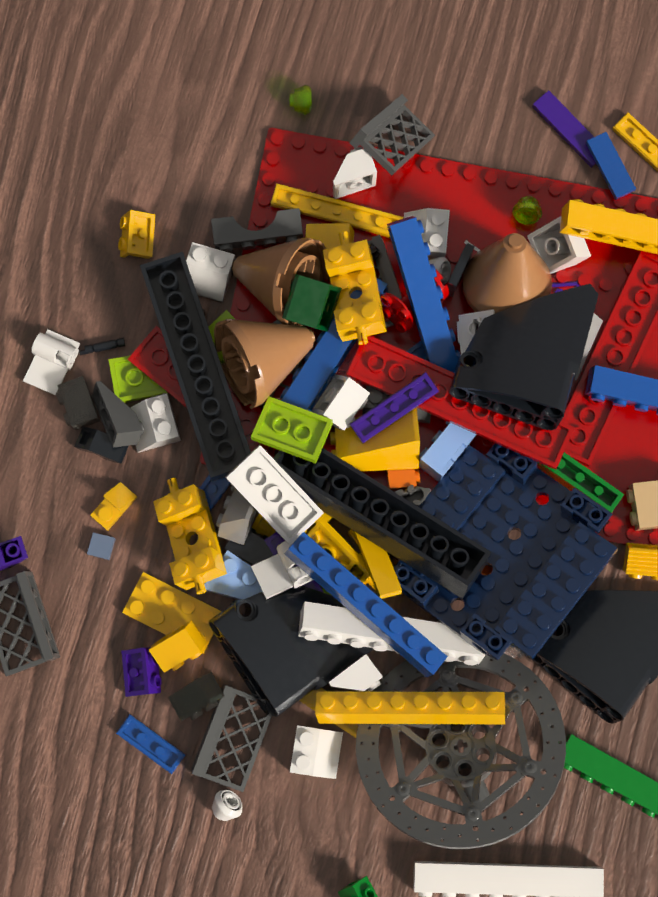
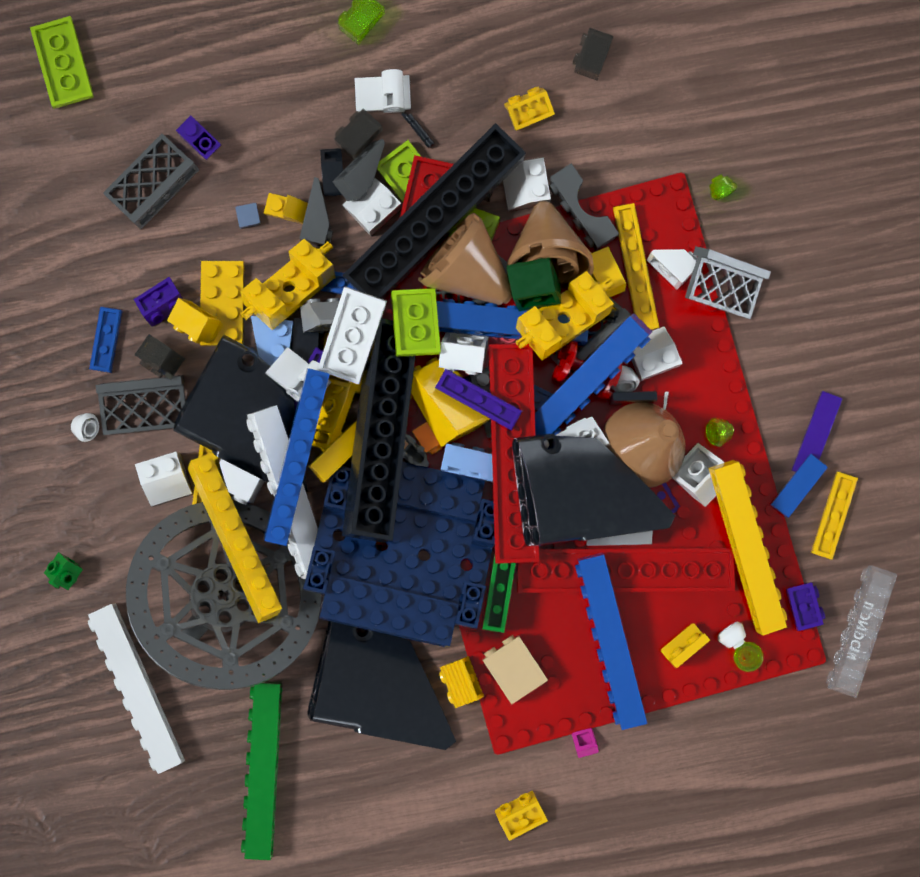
camera: 70 degrees right, 5 degrees up
(117, 153) = (593, 53): none -> clear smoke brick
(140, 481) = (316, 224): none -> dark grey slope

